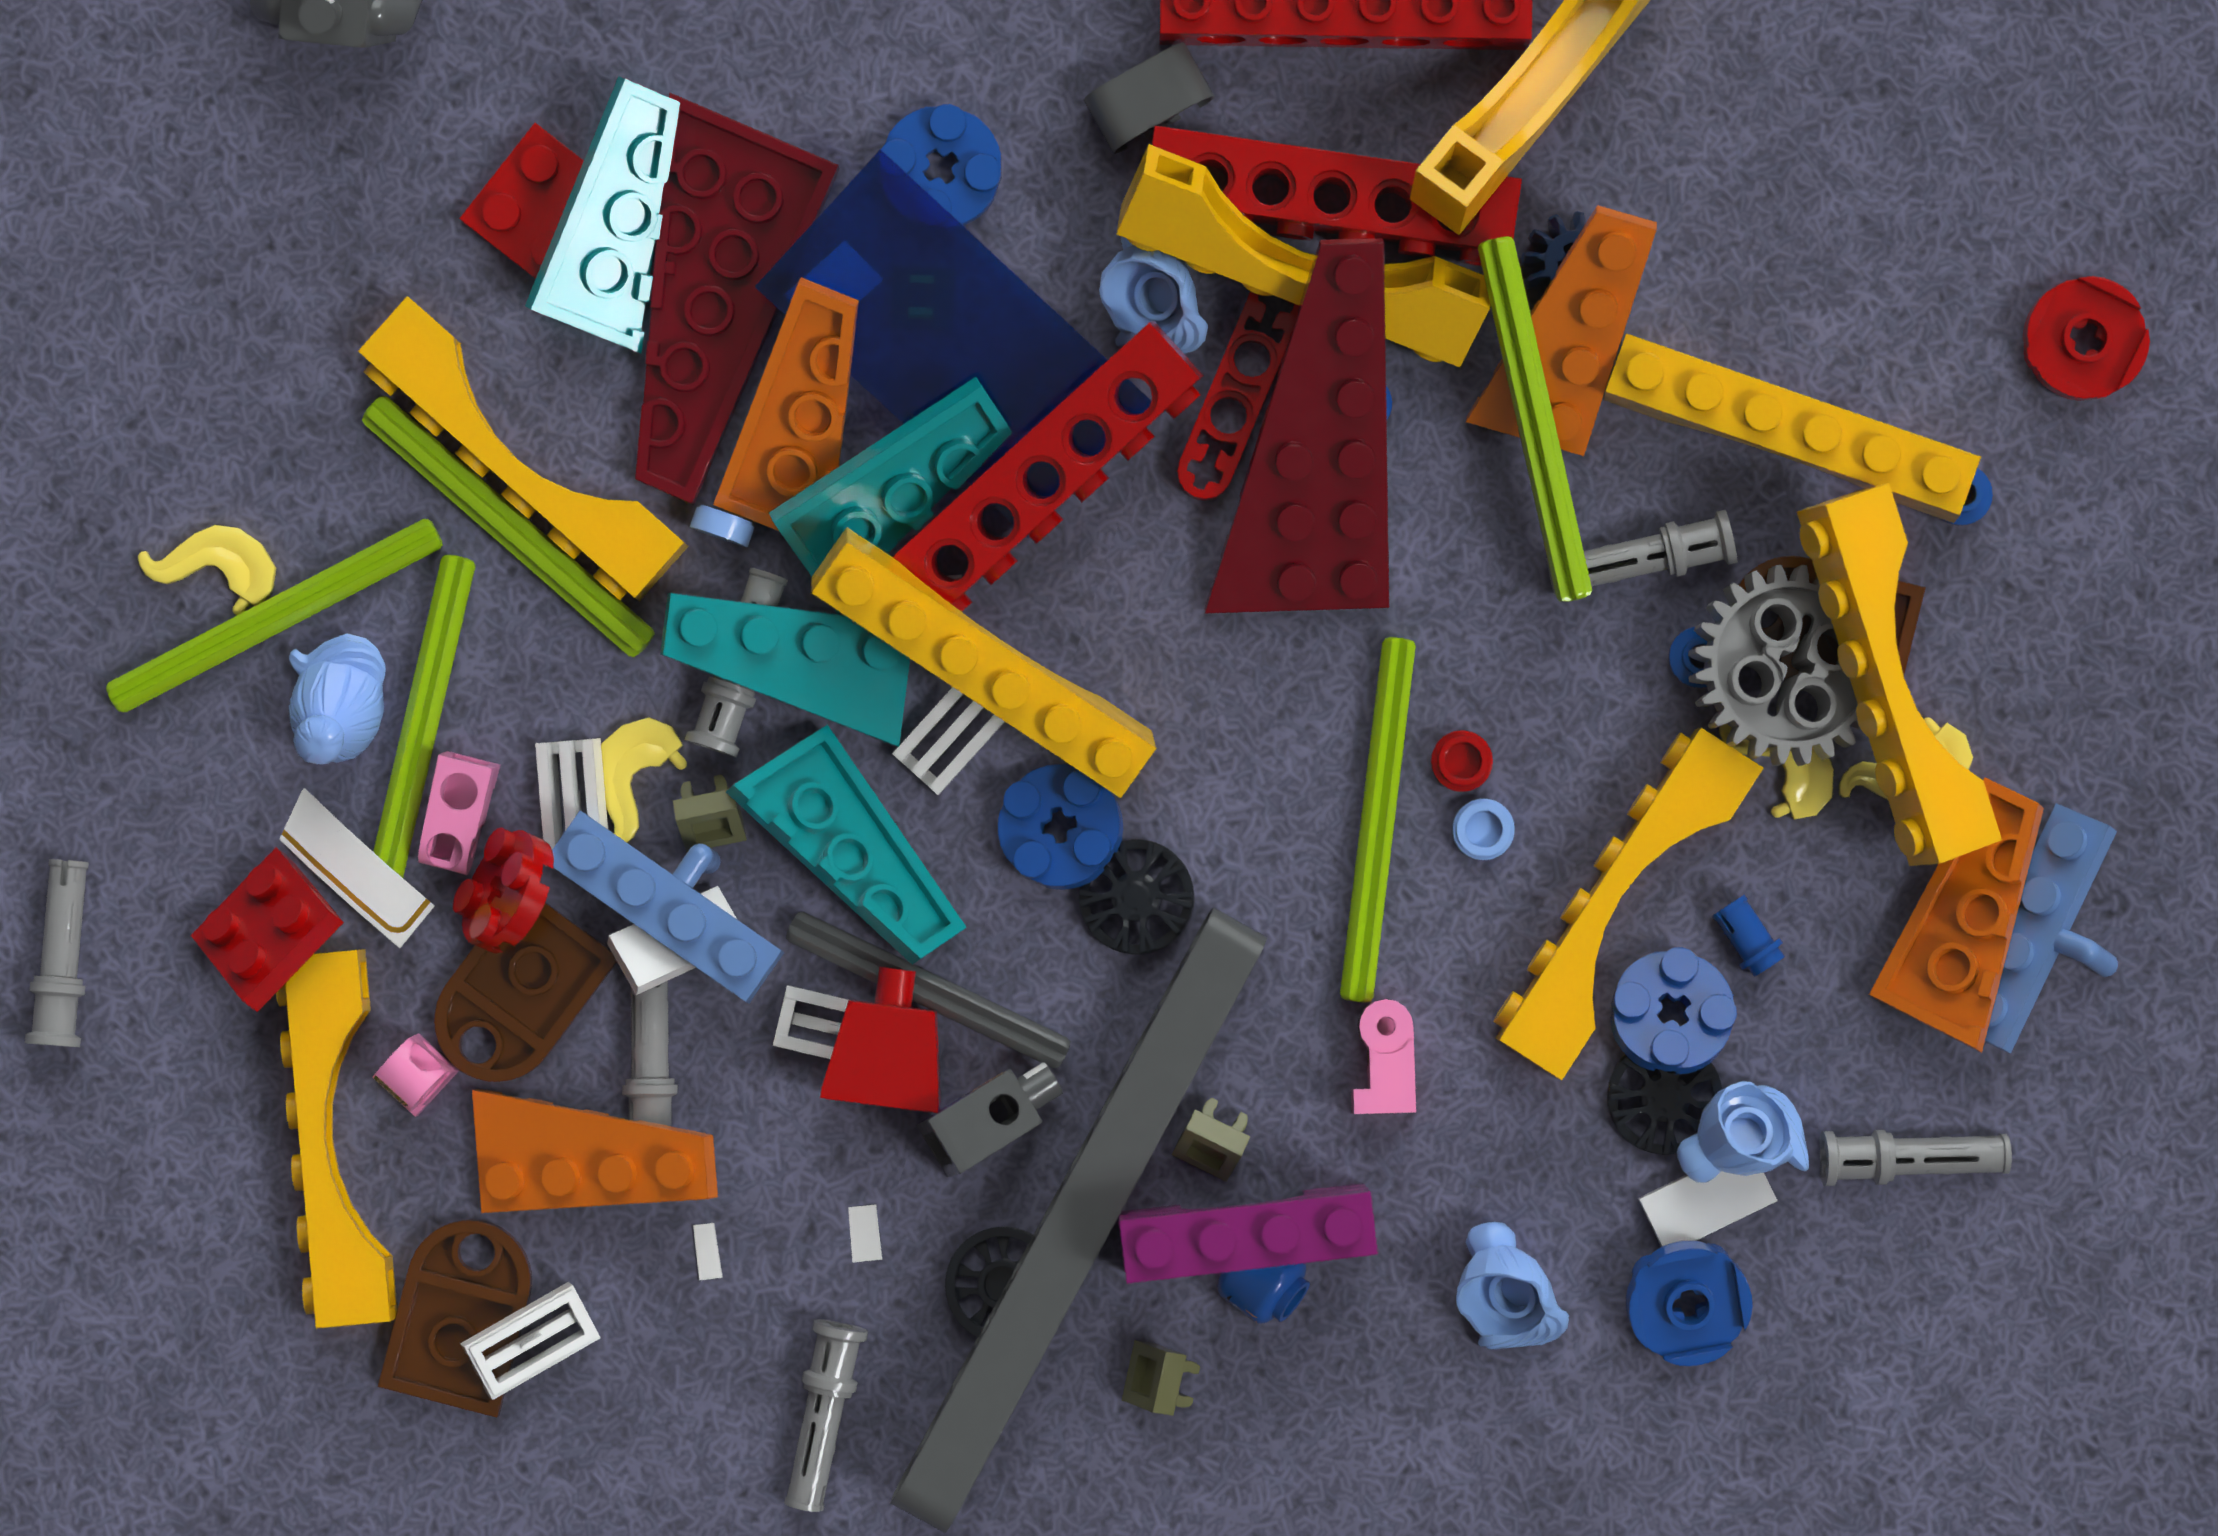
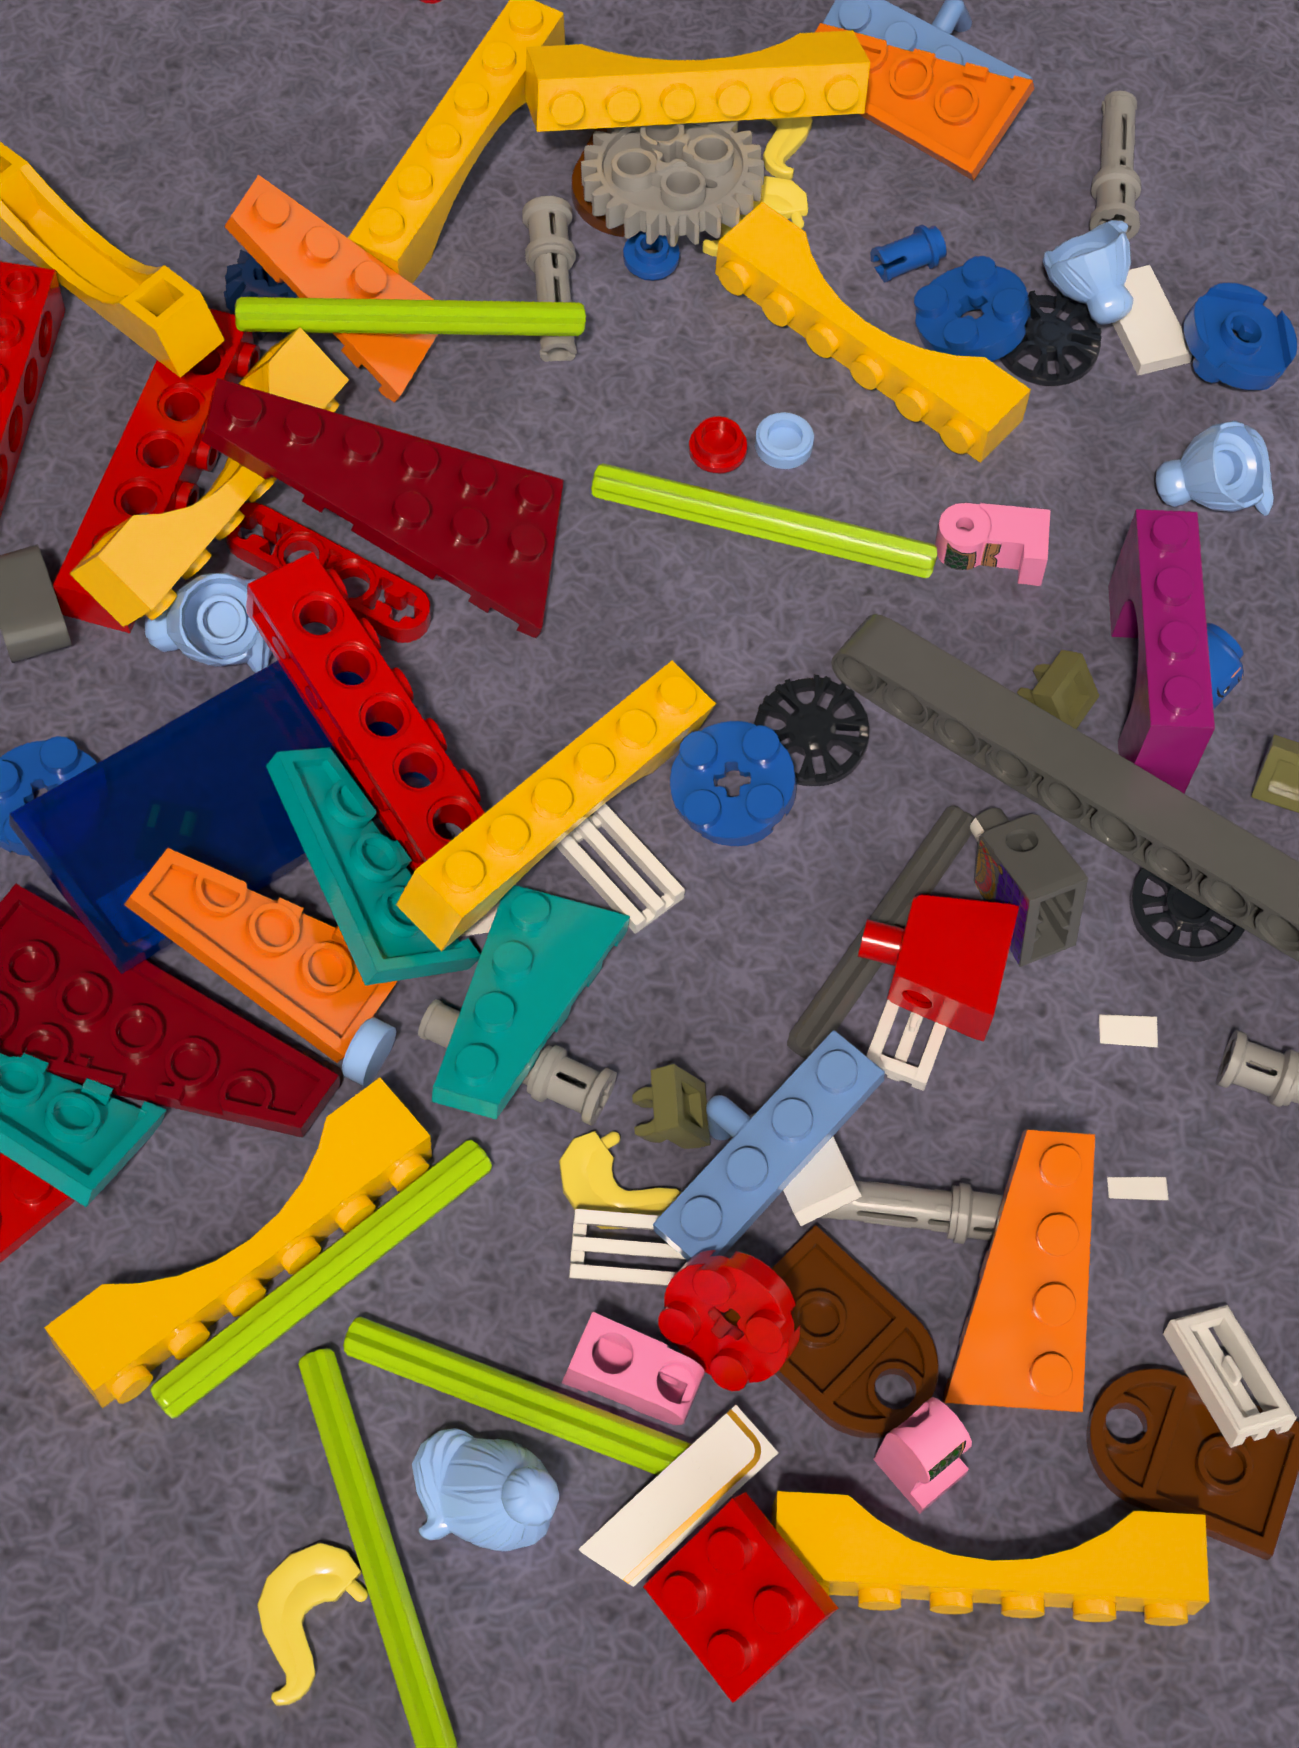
camera: 90 degrees left, 25 degrees down
(844, 835) = (712, 979): teal wing -> none

